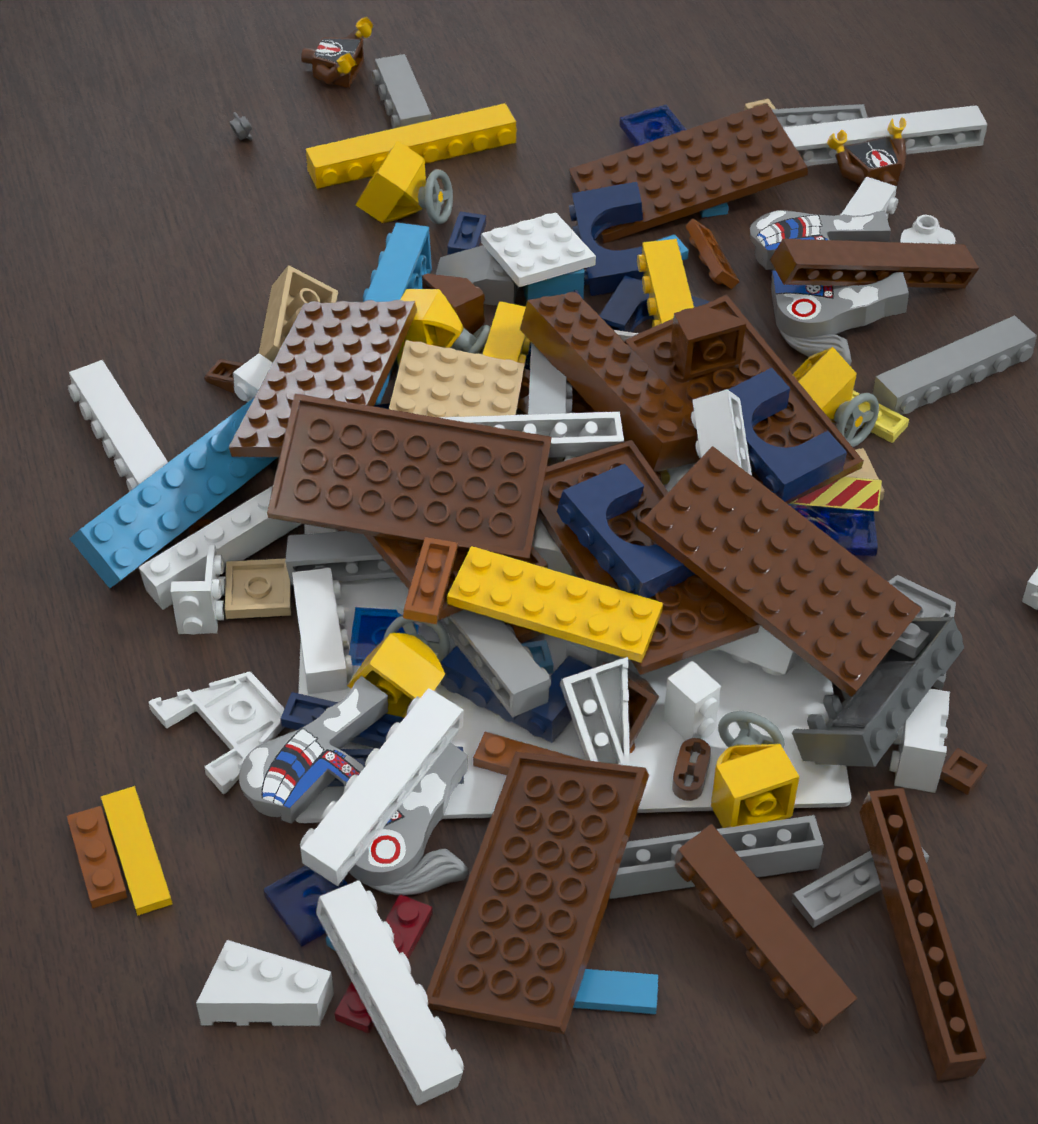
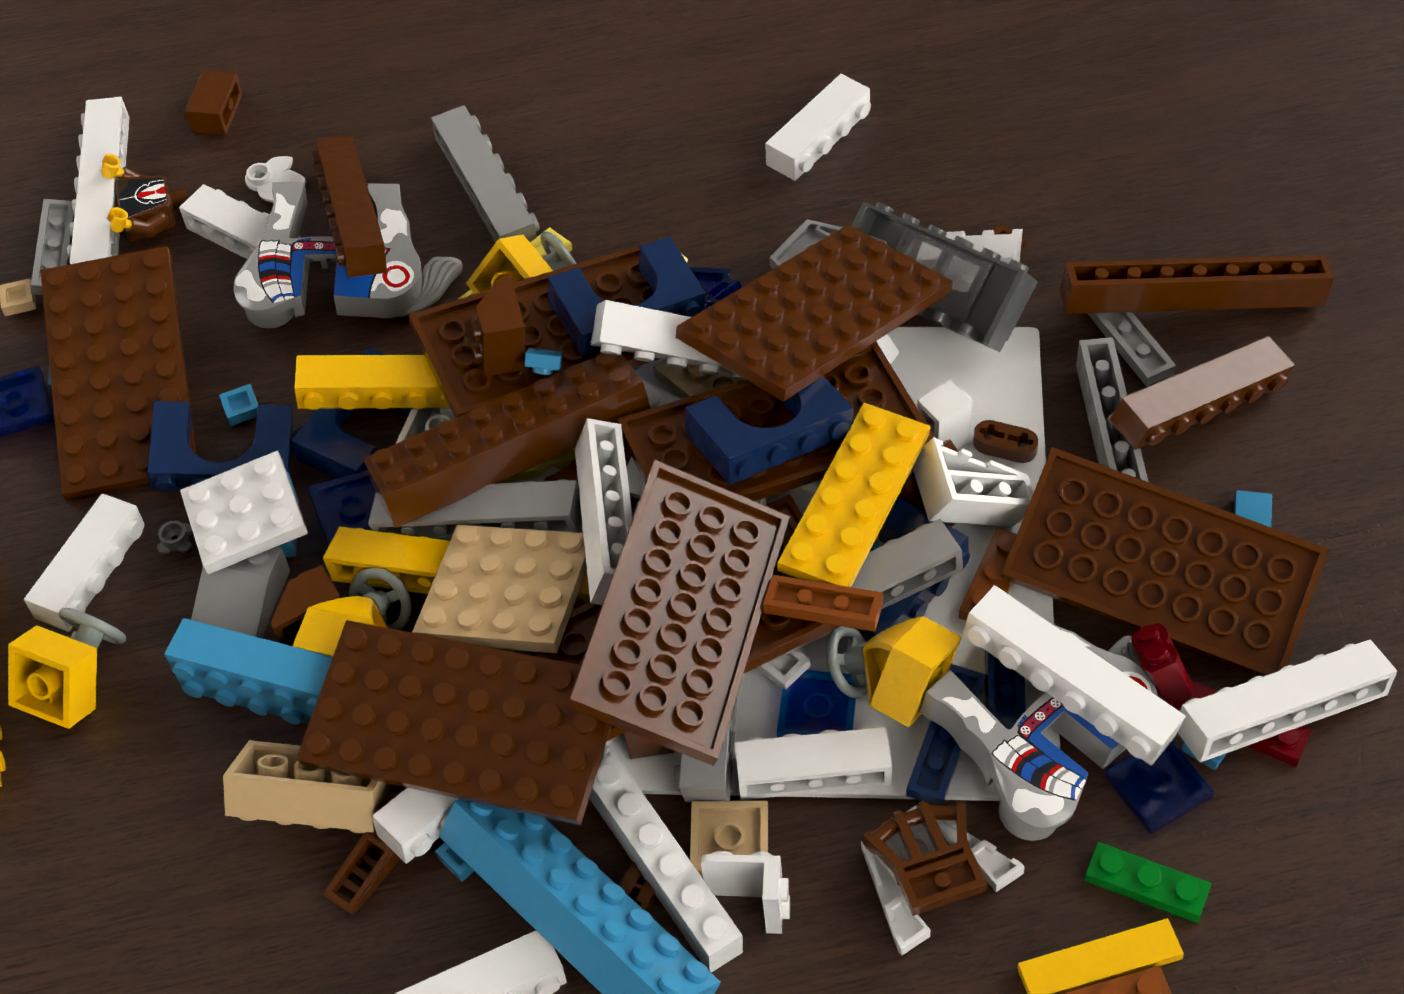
camera: 80 degrees left, 5 degrees up
(209, 722) = (937, 876): none -> reddish brown plate
(211, 888) = (1147, 882): none -> green plate
(264, 988) = (1283, 823): white wedge -> none
(424, 885) = (1162, 663): none -> dark red brick
(466, 232) = (155, 606): dark blue plate -> none
(504, 189) = (85, 560): none -> white brick
(687, 382) = (543, 360): none -> dark azure plate
(711, 254) = (256, 366): dark orange plate -> none
(753, 775) = (1042, 386): yellow piece -> none
(1005, 185) = (213, 102): none -> reddish brown brick

